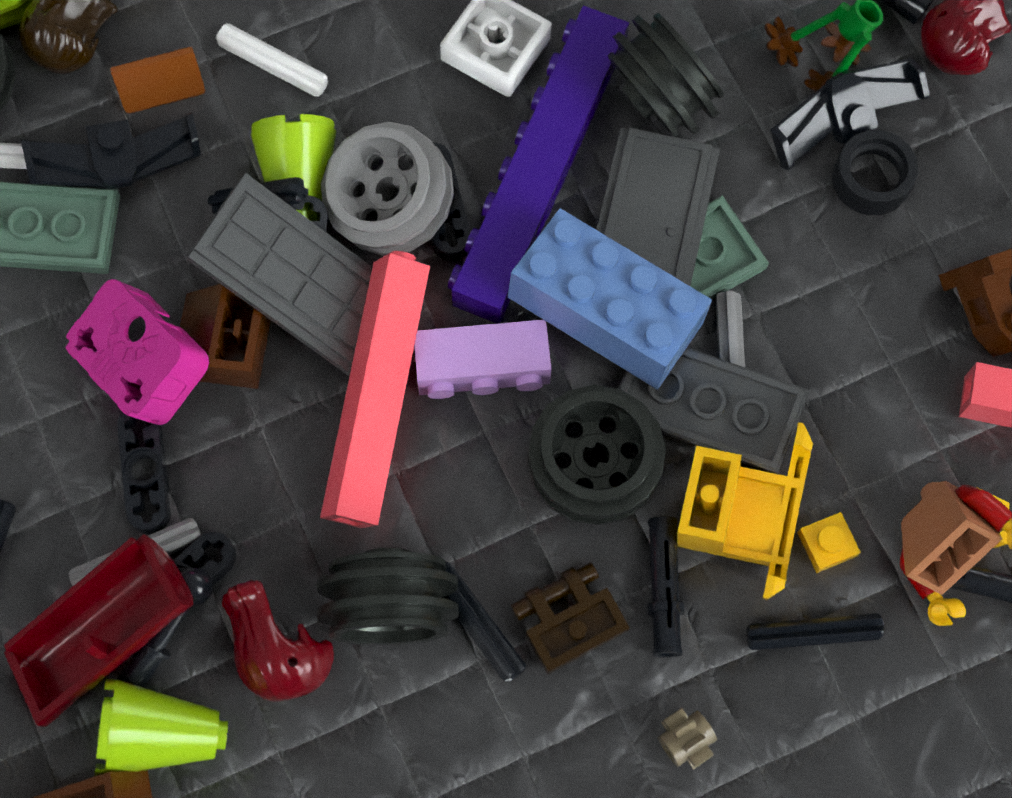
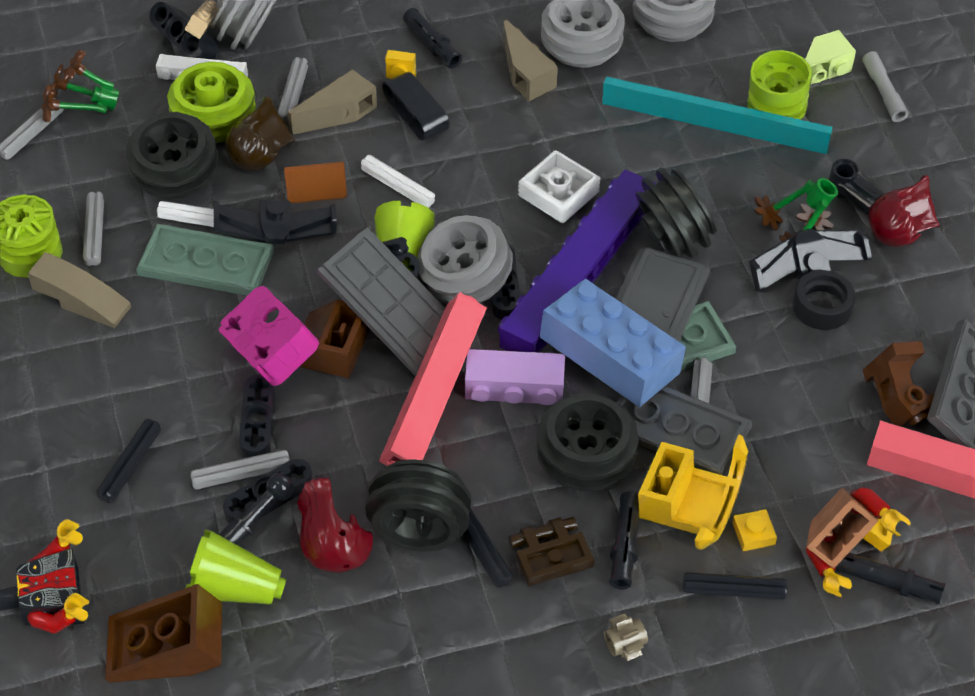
camera: 10 degrees right, 20 degrees down
(96, 626) = (204, 498): dark red container -> none

